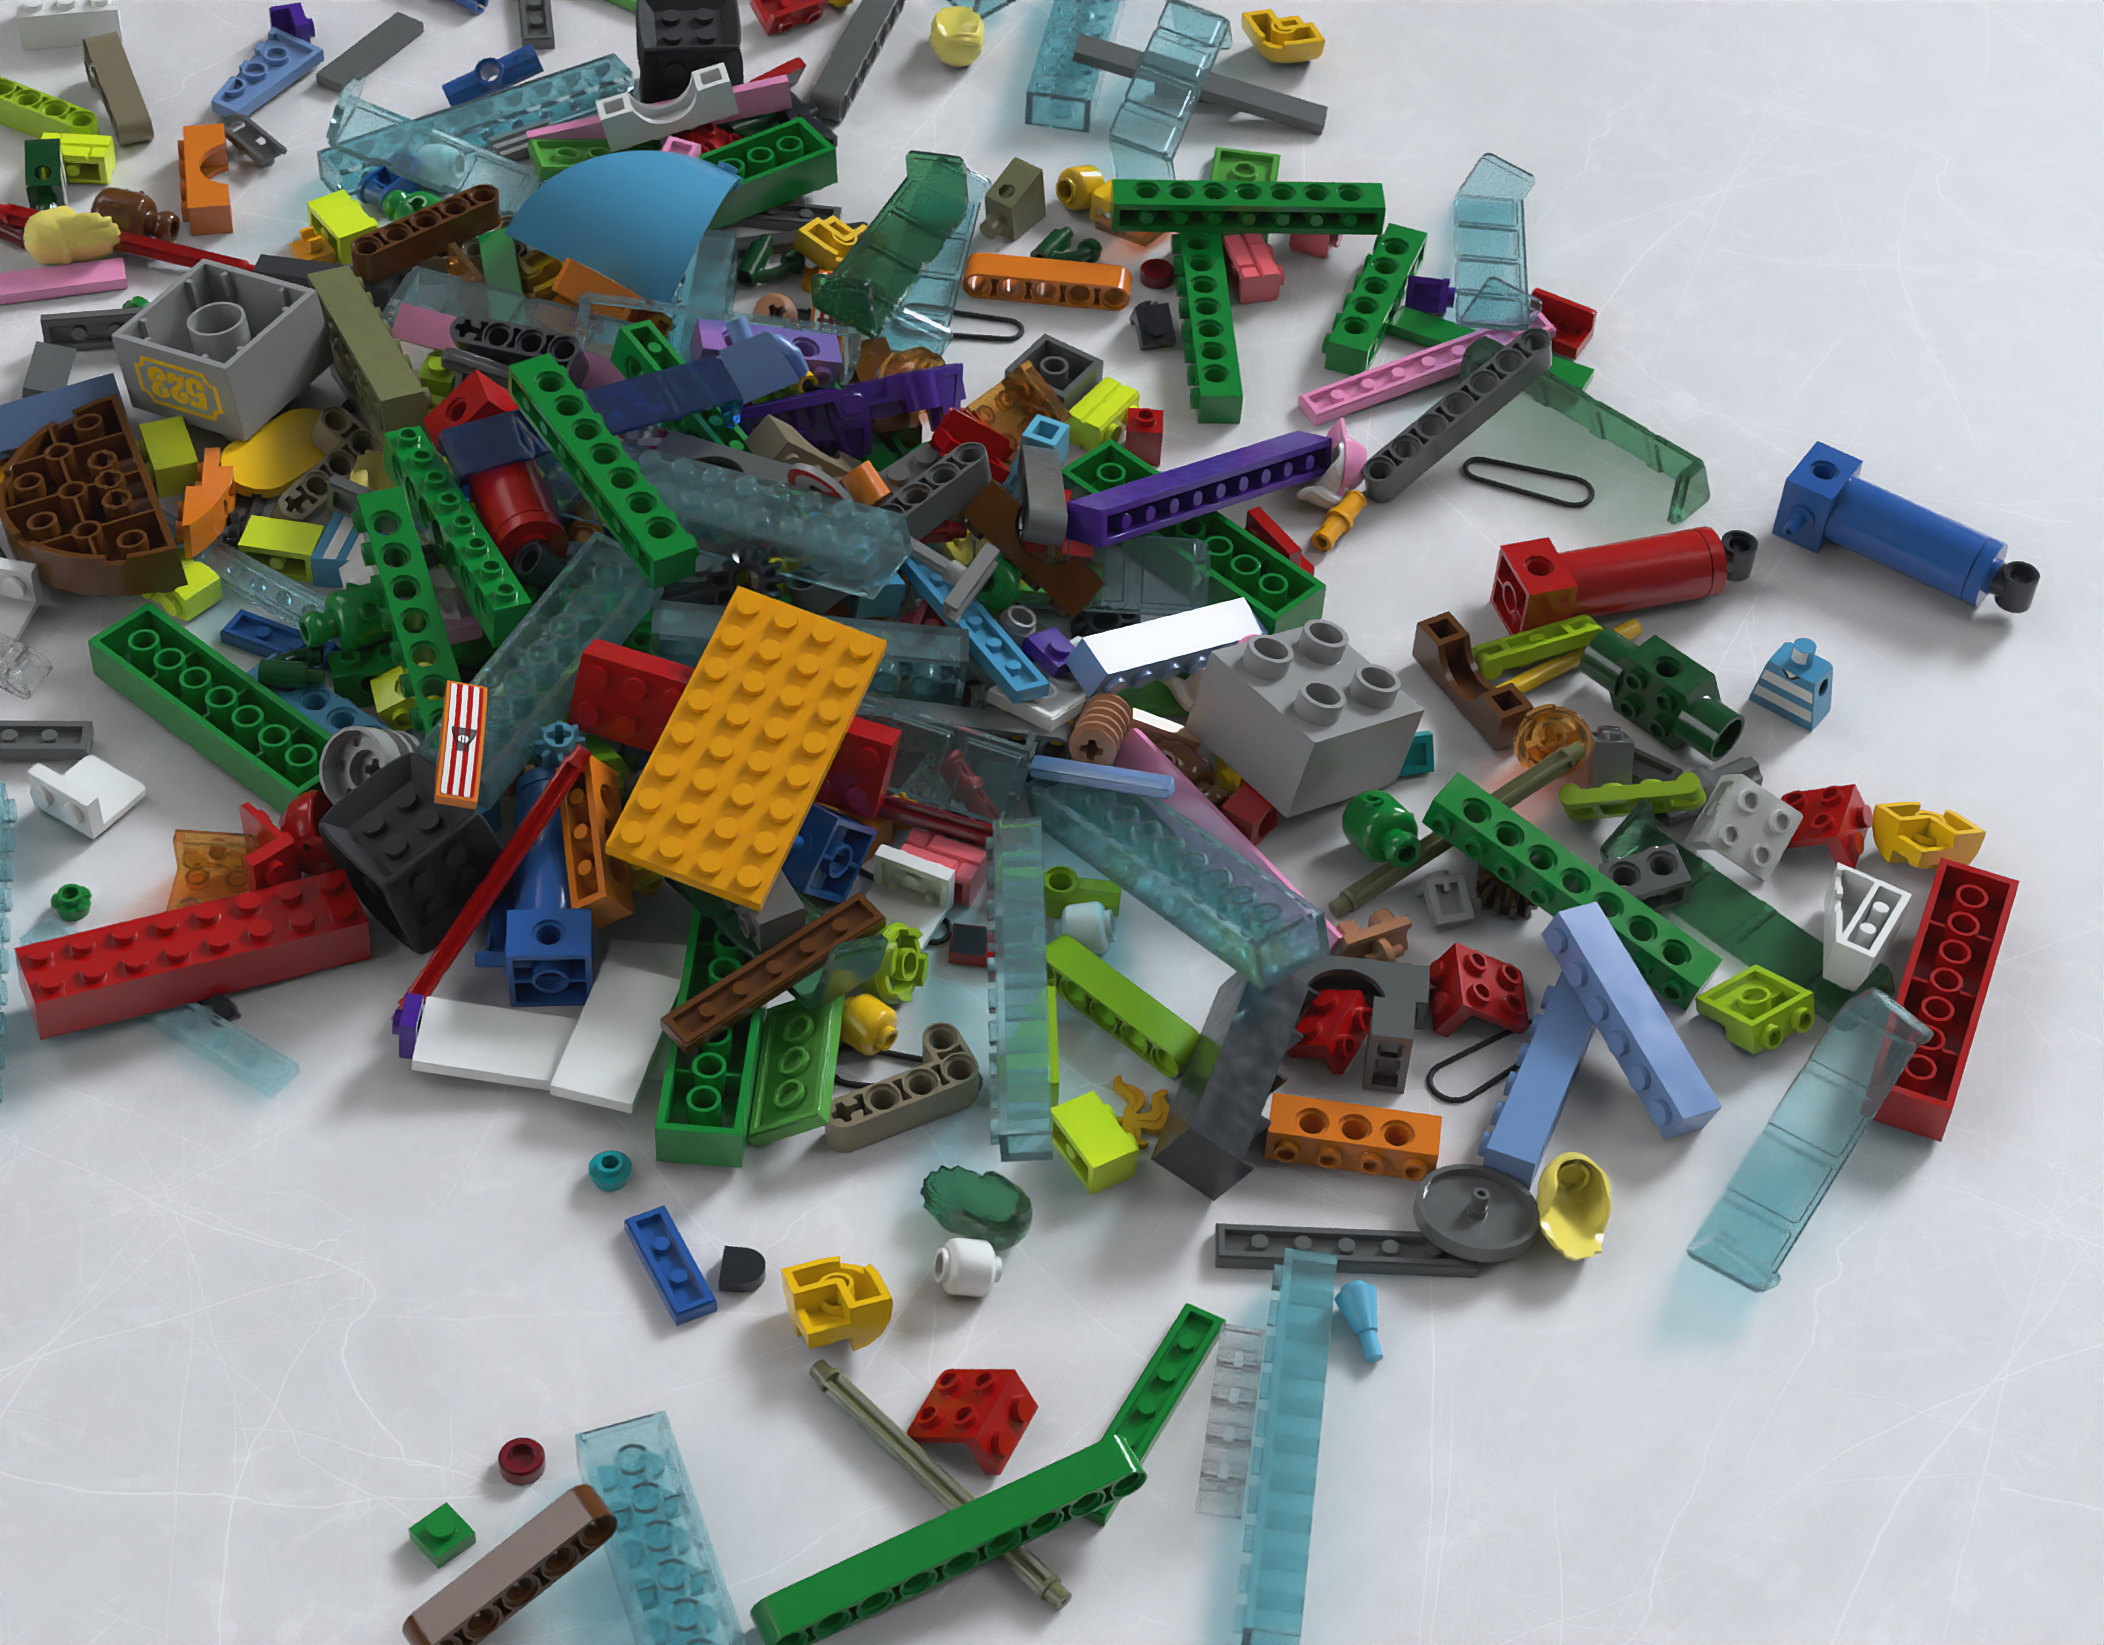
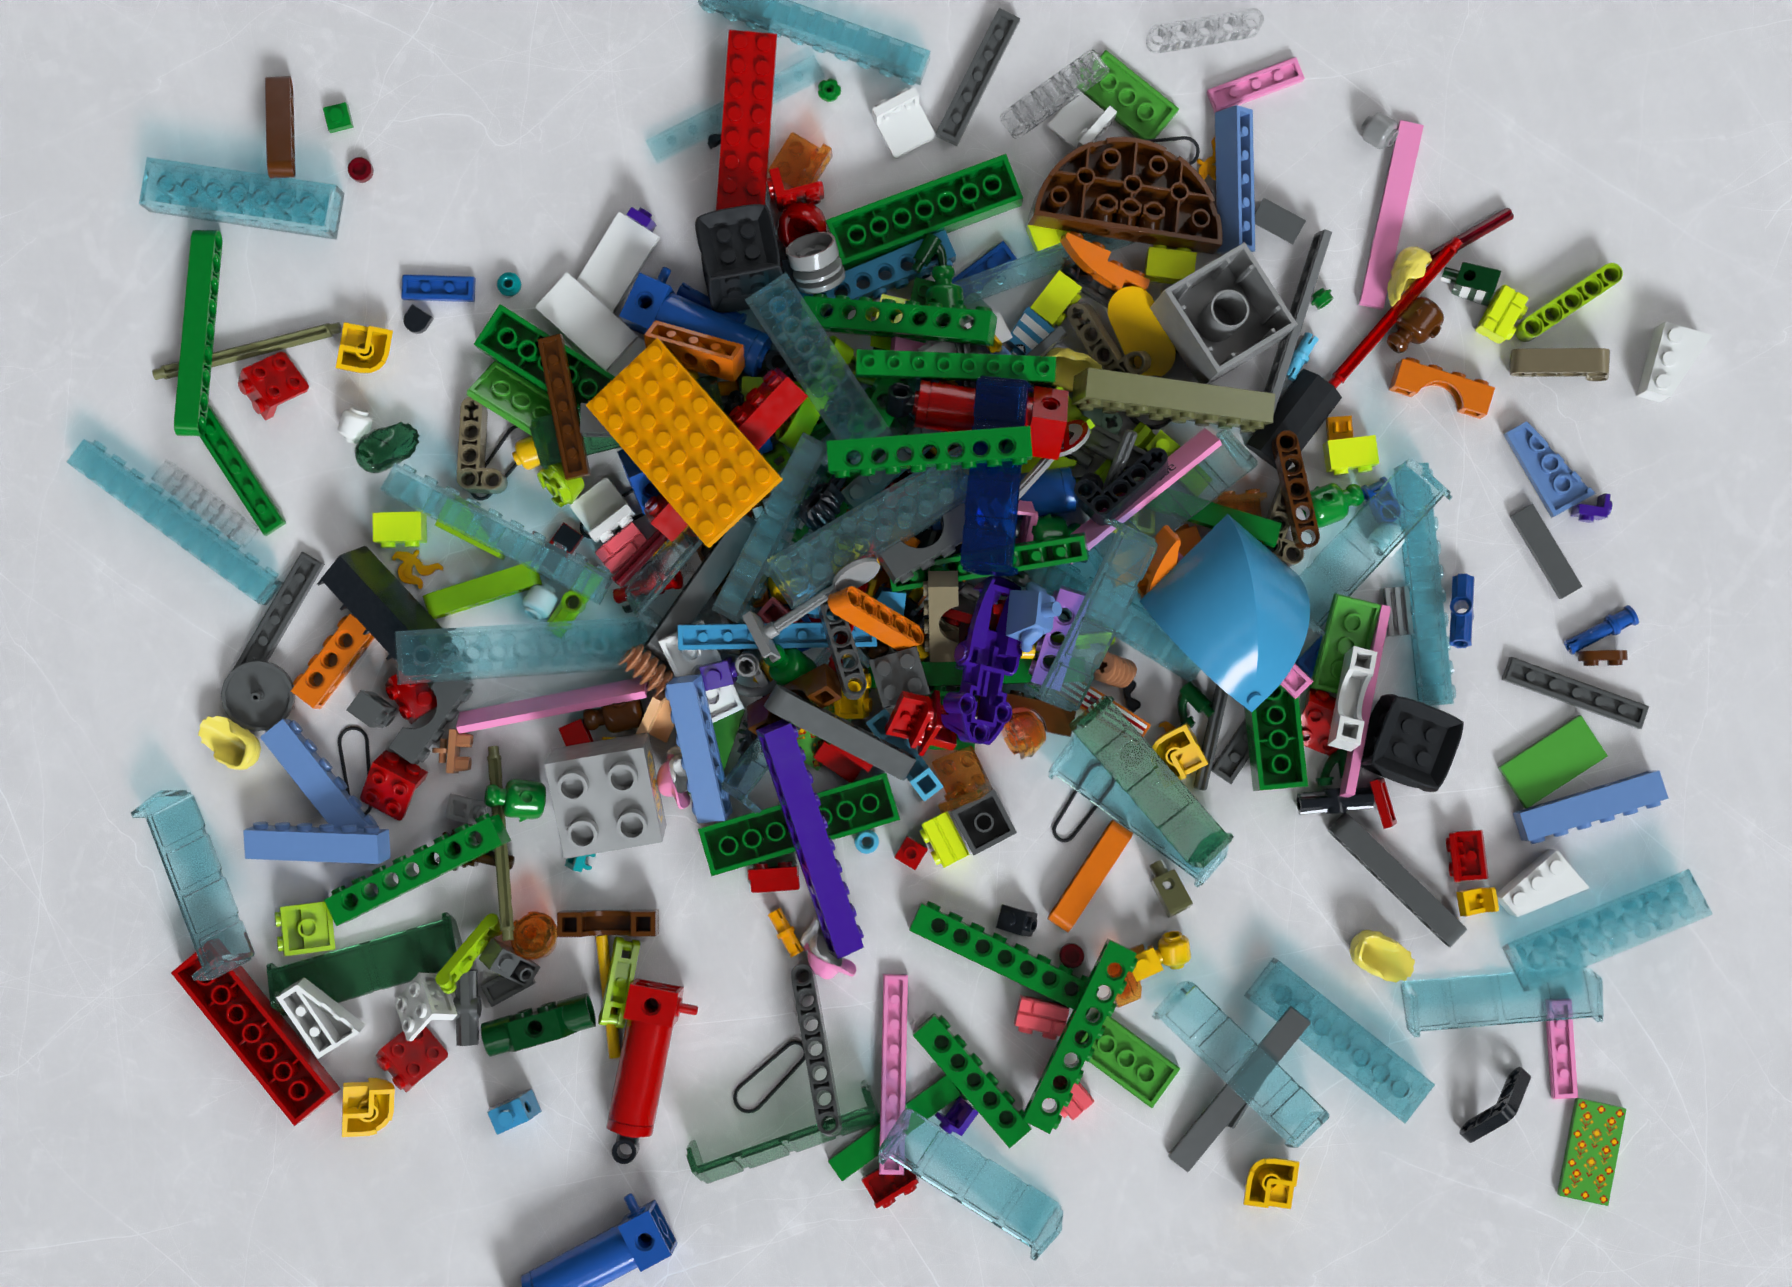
camera: 125 degrees right, 40 degrees up
(245, 138) = (1480, 430): dark grey piece -> none
(461, 745) = (759, 287): slope -> none
(499, 874) = (696, 289): red piece -> none
(558, 741) = (763, 352): medium azure gear -> none
(1060, 240) = (1126, 901): dark green plant -> none
(1102, 777) = (609, 651): light blue axle -> none
(1359, 1307) = (235, 603): medium azure cone -> none
(1643, 879) = (407, 921): dark grey brick -> none

